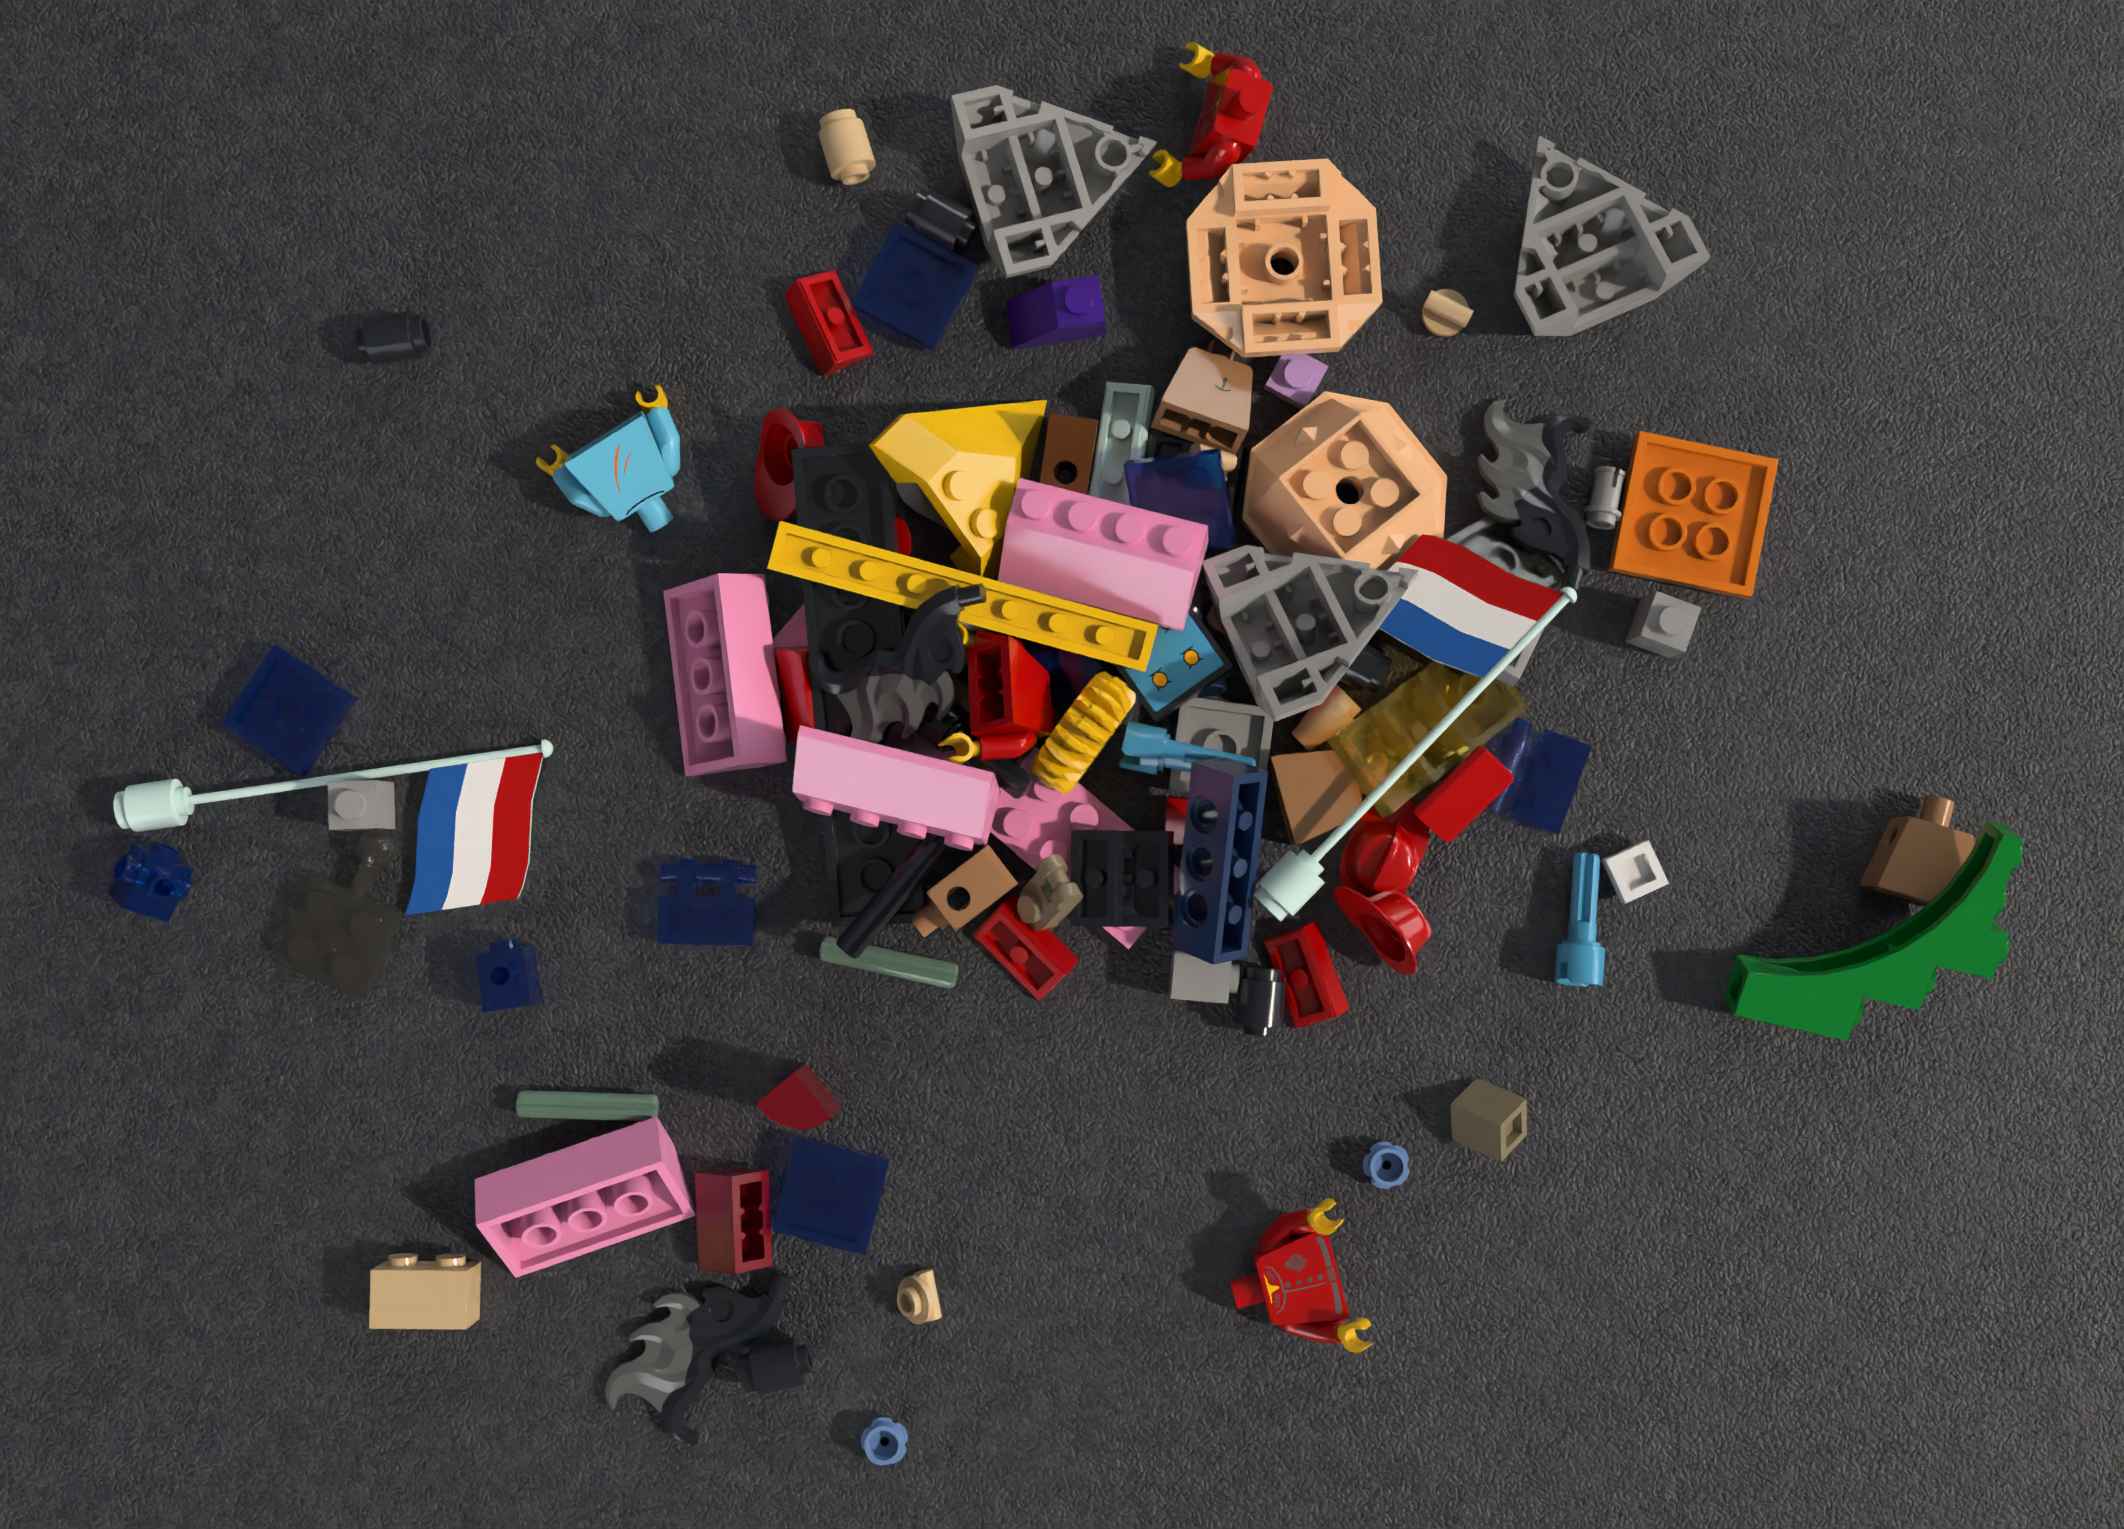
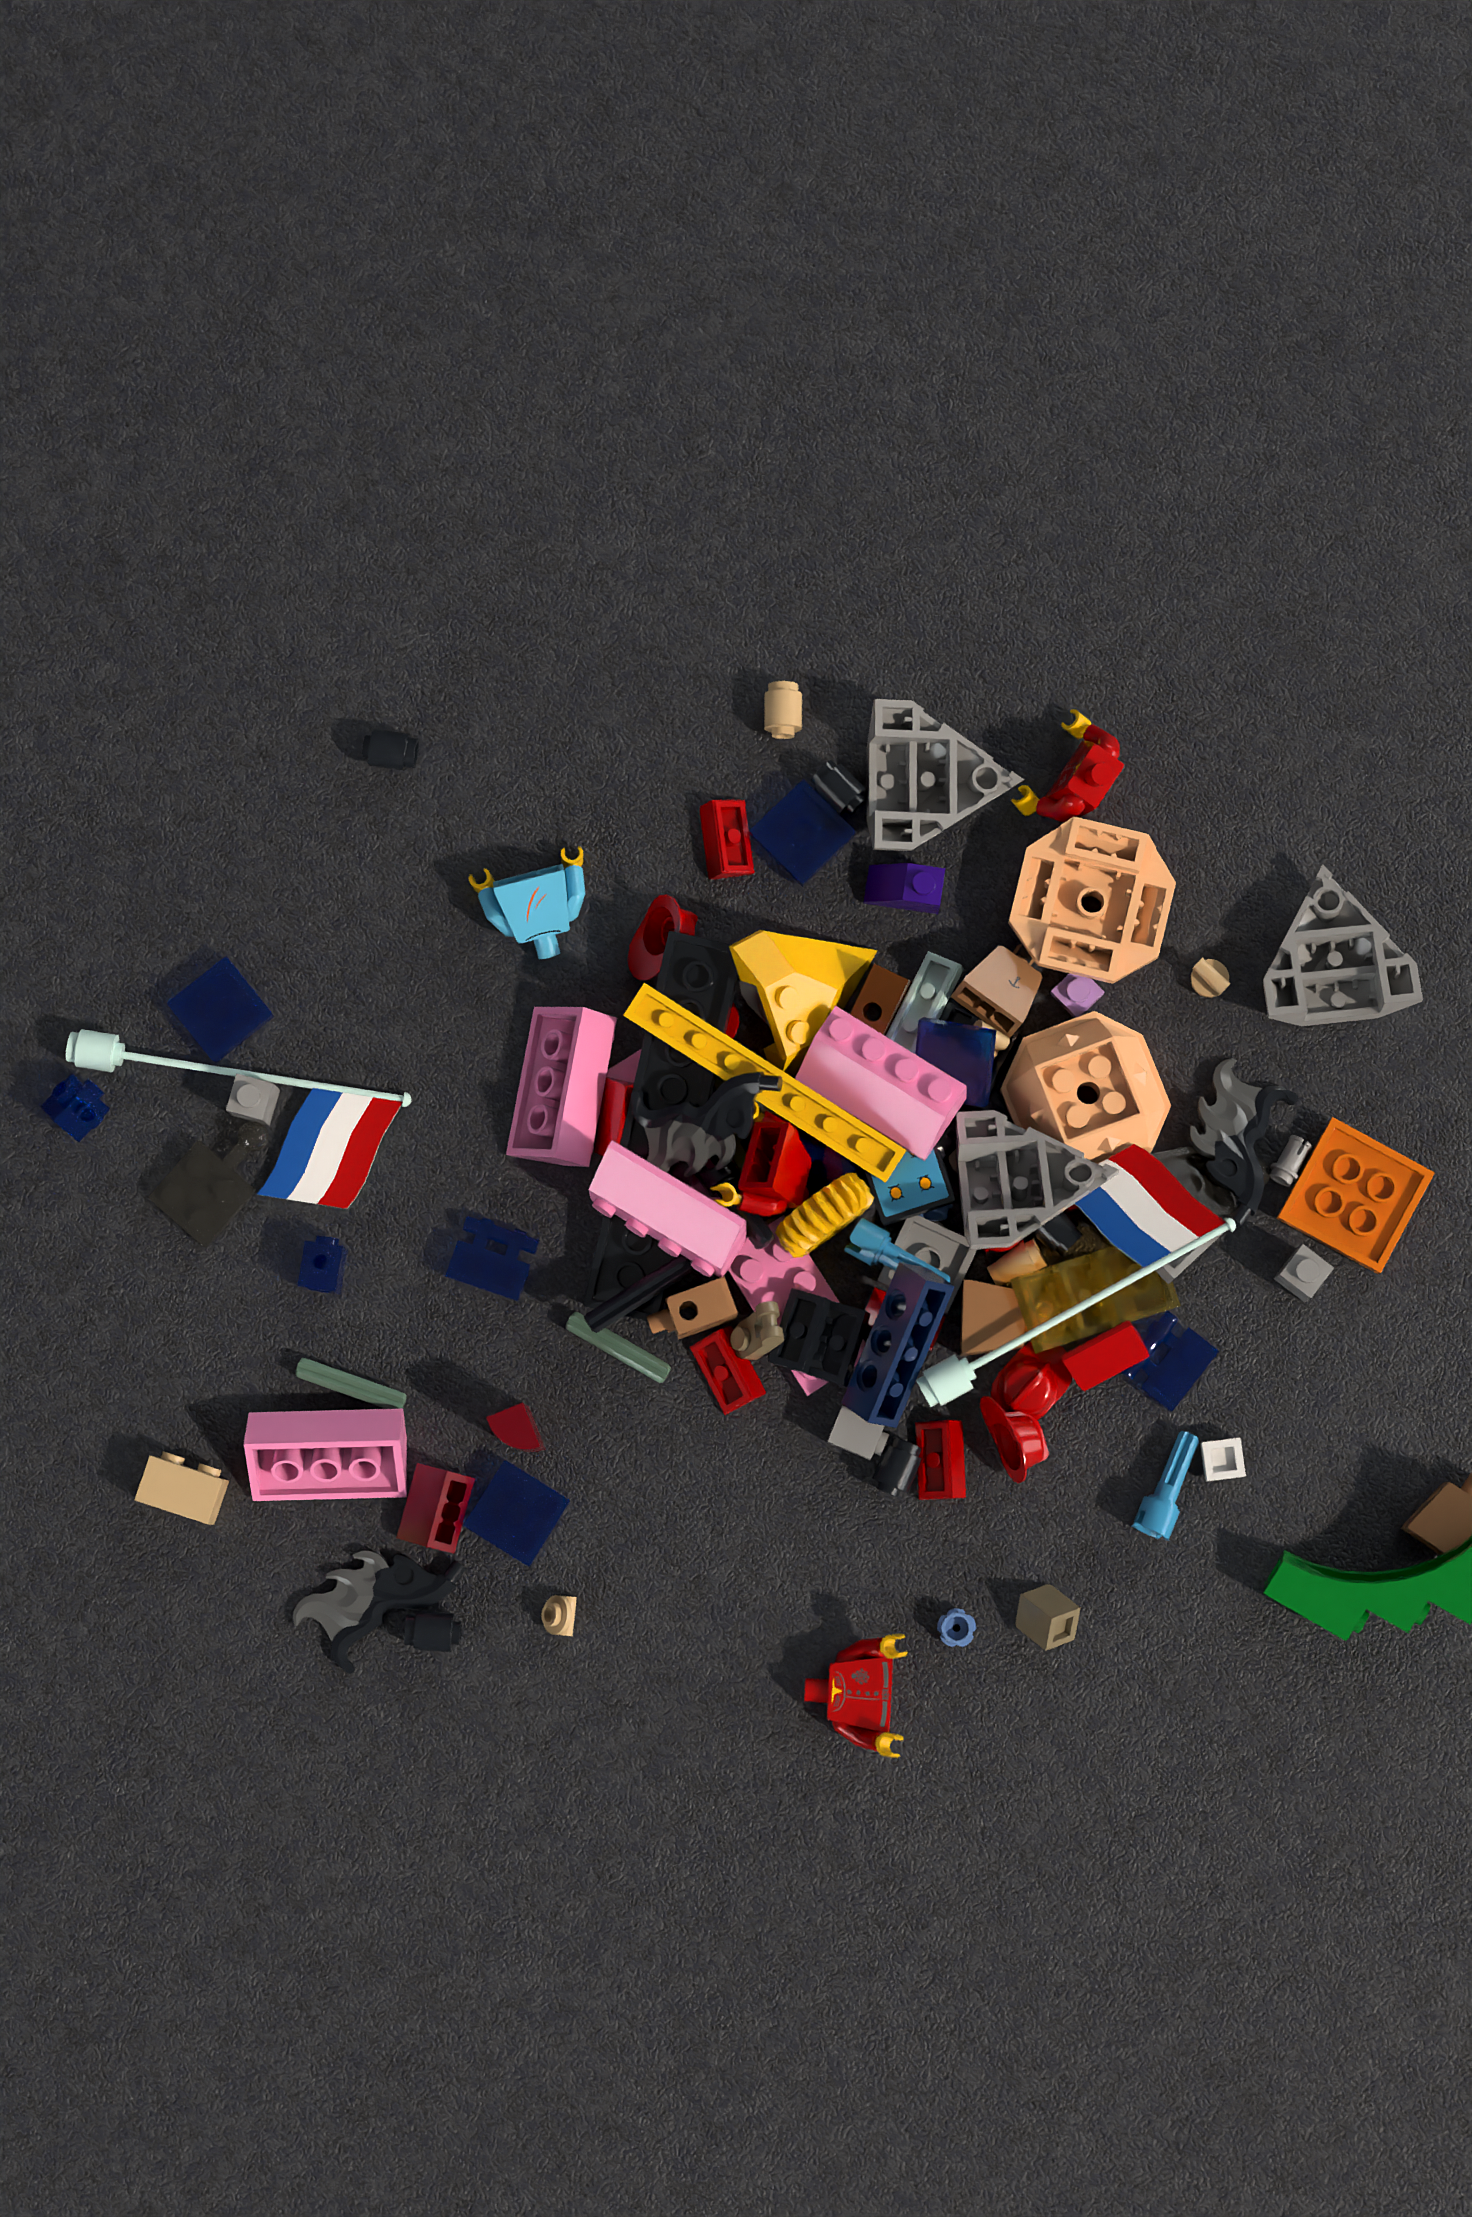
camera: 25 degrees right, 5 degrees down
(884, 1454) = (490, 1726): medium blue plate -> none

